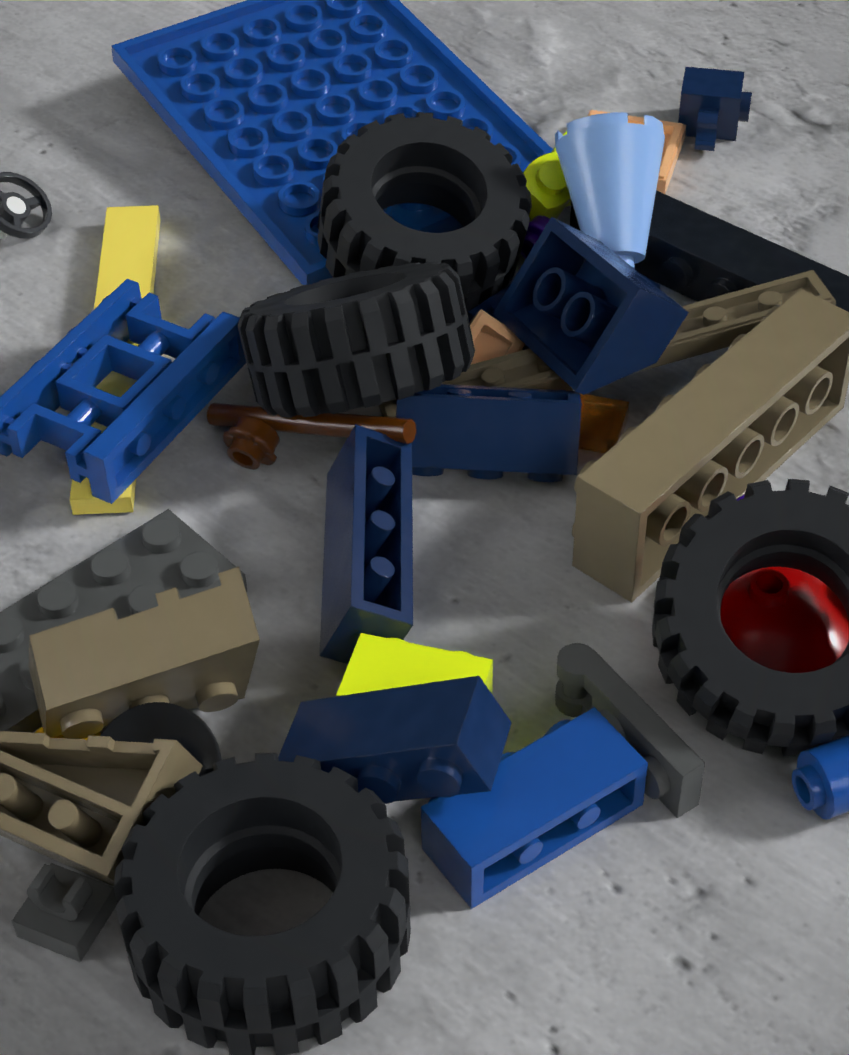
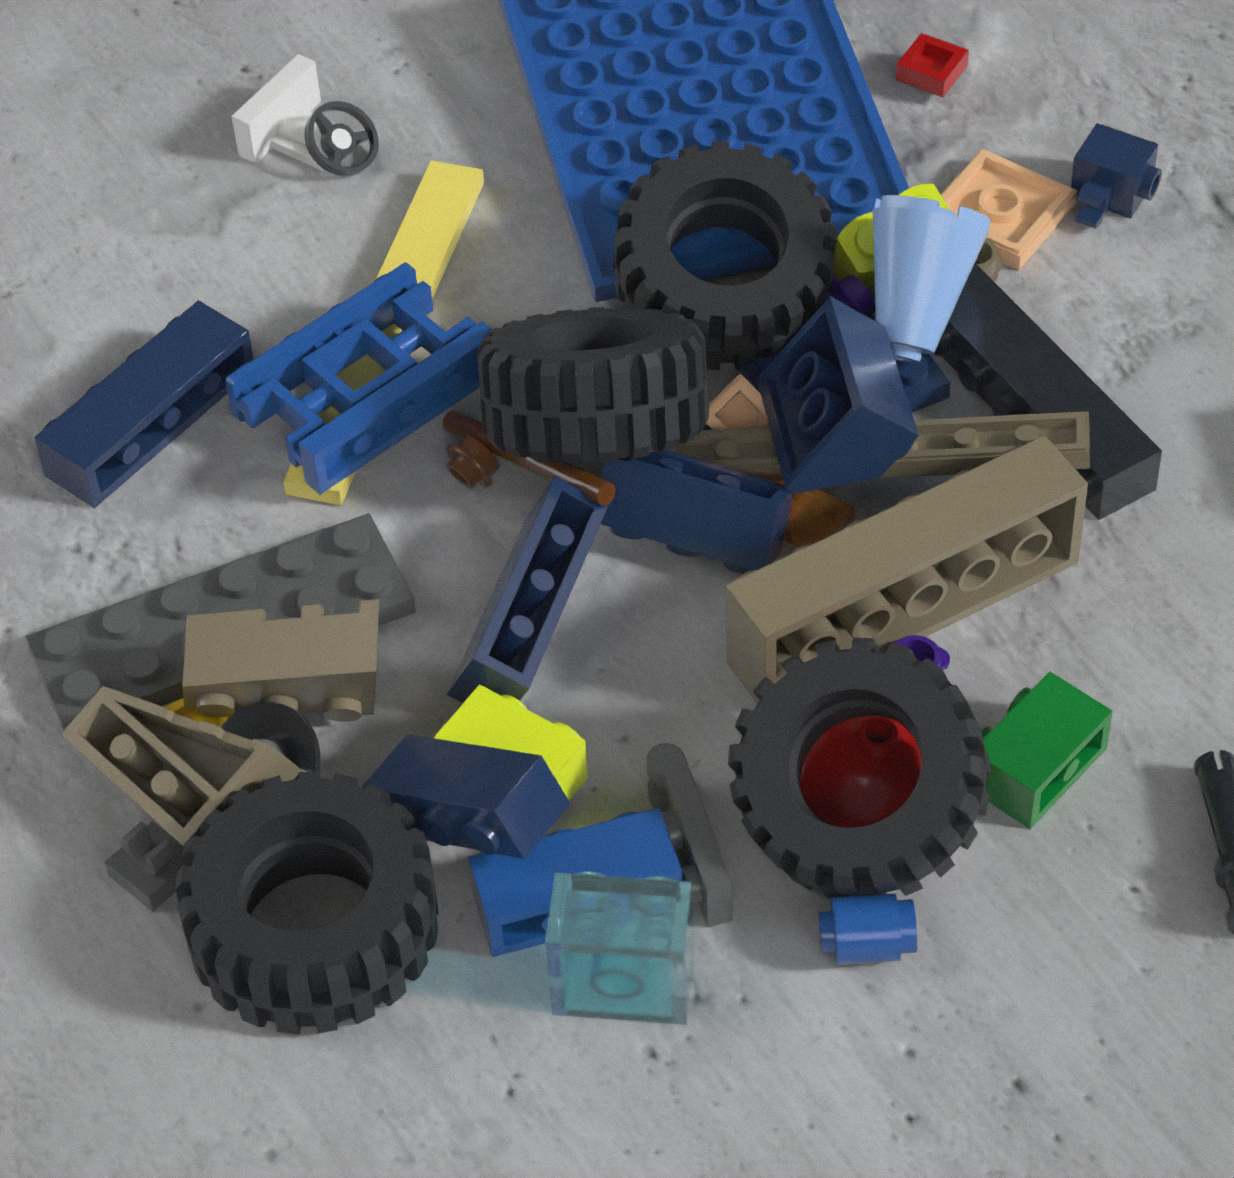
camera: 20 degrees right, 5 degrees up
(517, 59) = (932, 65): none -> red plate
(626, 857) = (620, 947): none -> clear light blue brick

